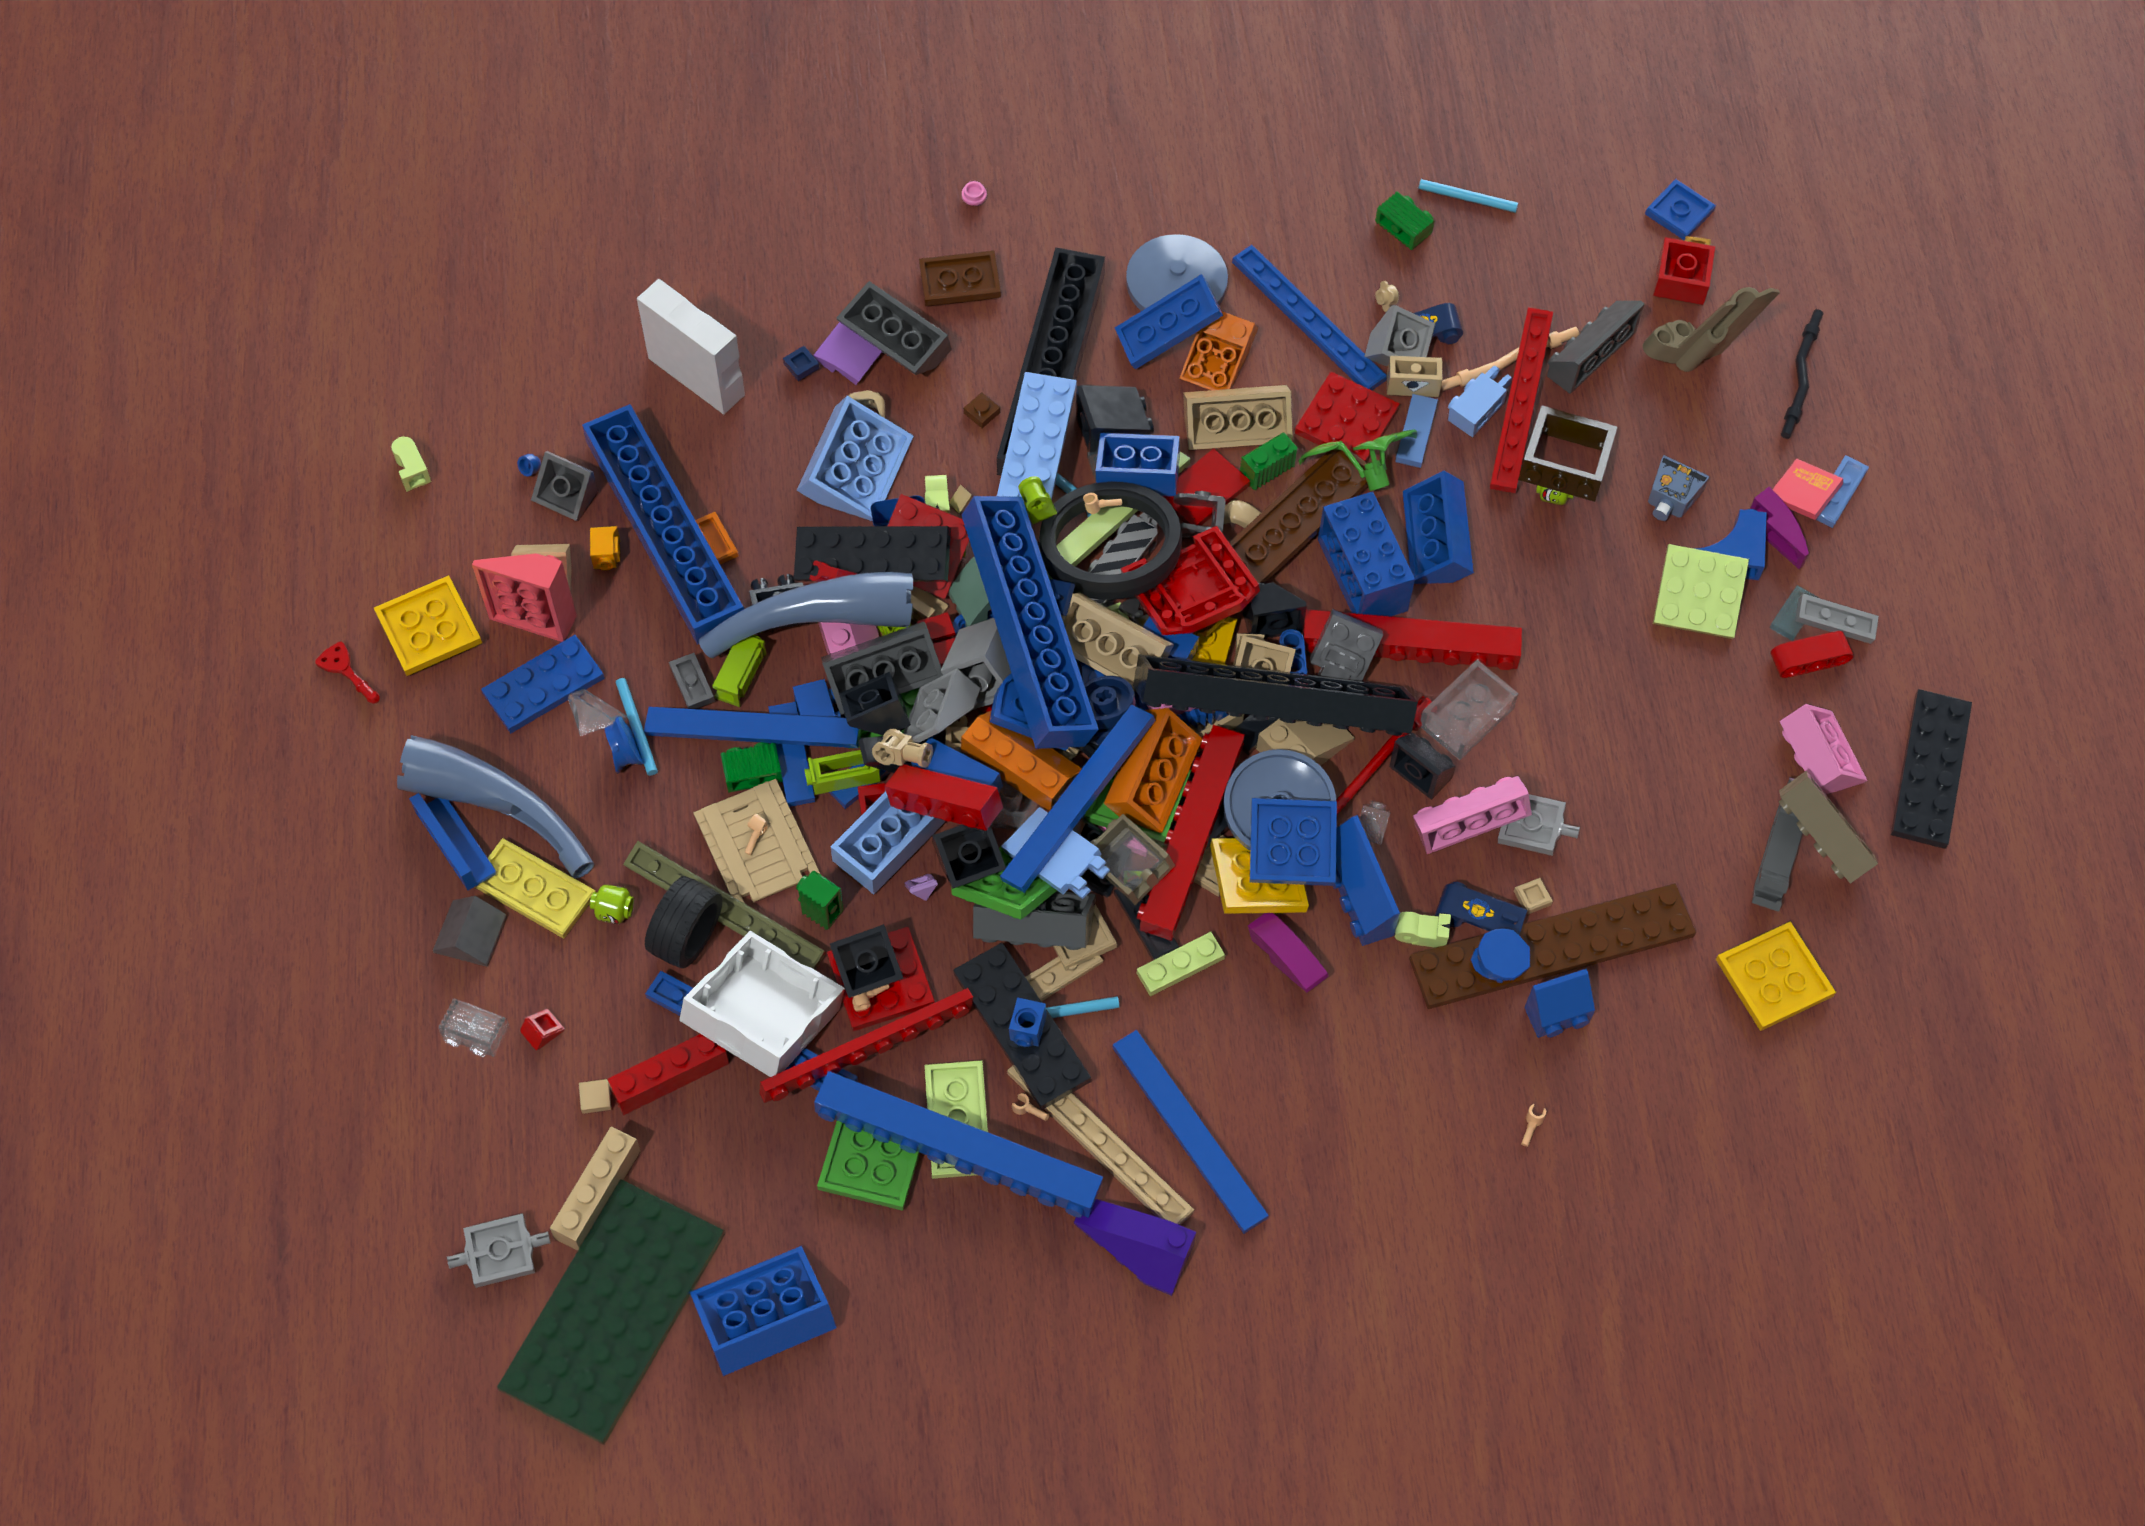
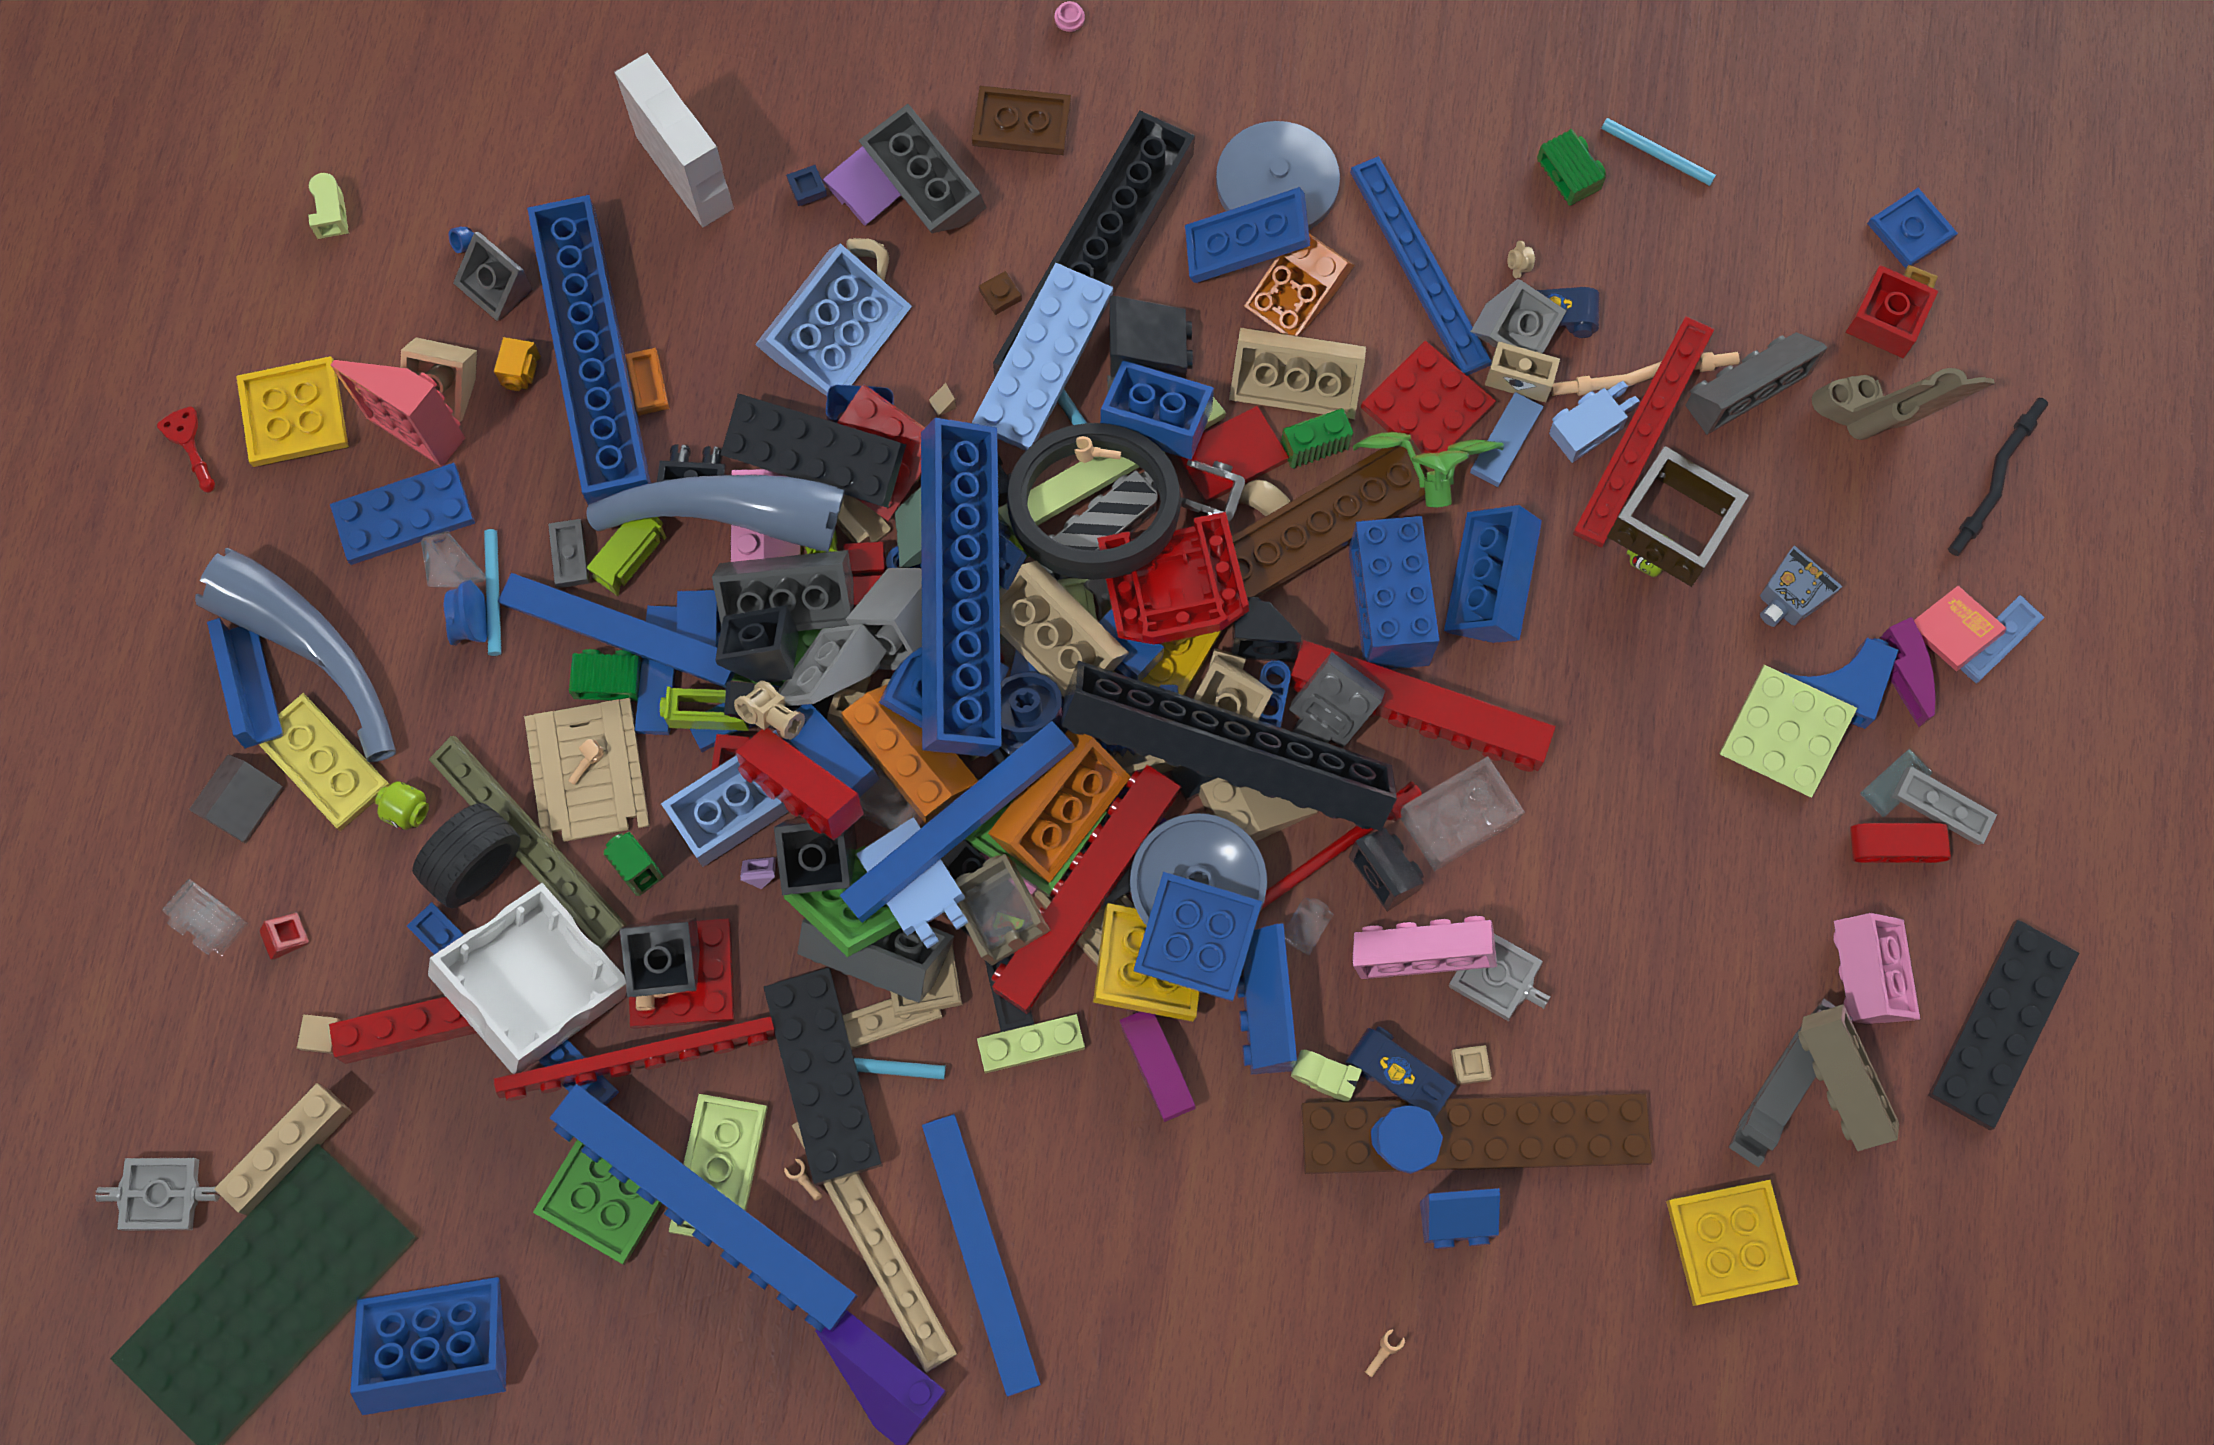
camera: 15 degrees right, 10 degrees up
(827, 572) = (756, 463): red plate -> none
(937, 492) = (915, 391): yellowish green leg -> none
(1025, 1011) = (823, 1066): blue brick -> none
(1036, 499) = (1018, 434): lime piece -> none

